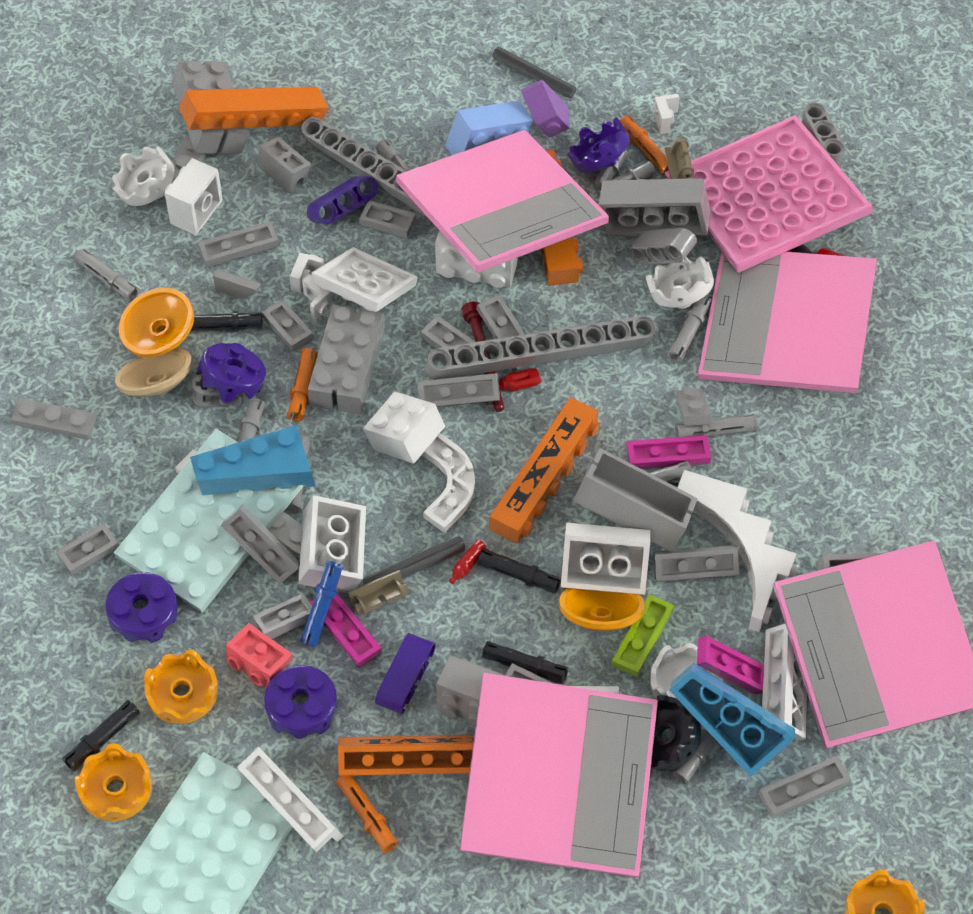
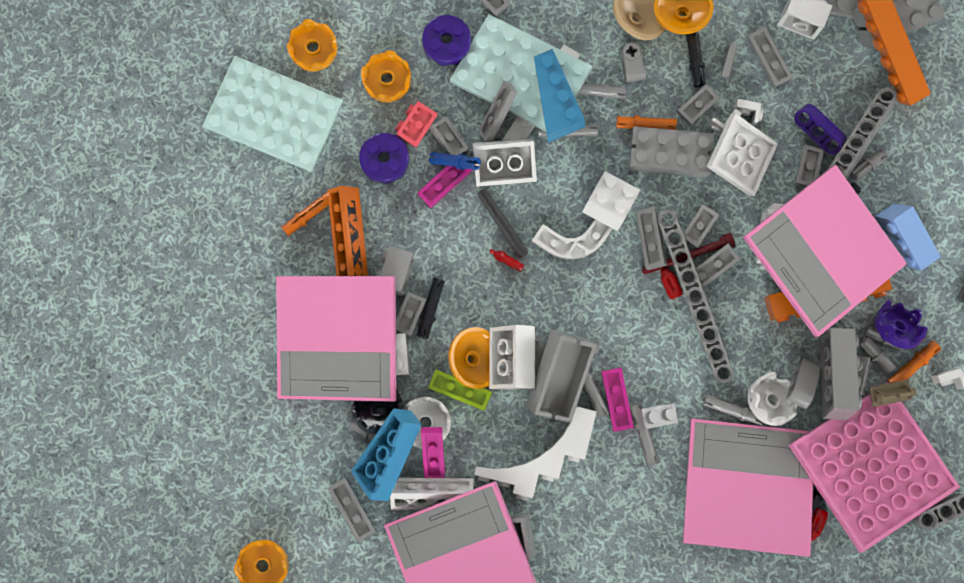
camera: 85 degrees right, 25 degrees up
(92, 743) = (347, 30): black pin -> none
(231, 370) = (634, 69): dark purple plate -> none
(283, 164) = (851, 79): light grey hinge -> none
(288, 800) = (309, 161): white fence -> none
(369, 596) = (468, 192): dark tan hinge -> none
(404, 672) = (413, 225): dark purple beam -> none
(529, 574) = (500, 306): black pin -> none
(544, 470) = (590, 308): orange brick -> none
(546, 108) = (933, 280): medium lavender slope -> none
(696, 563) = (522, 425): light grey plate -> none

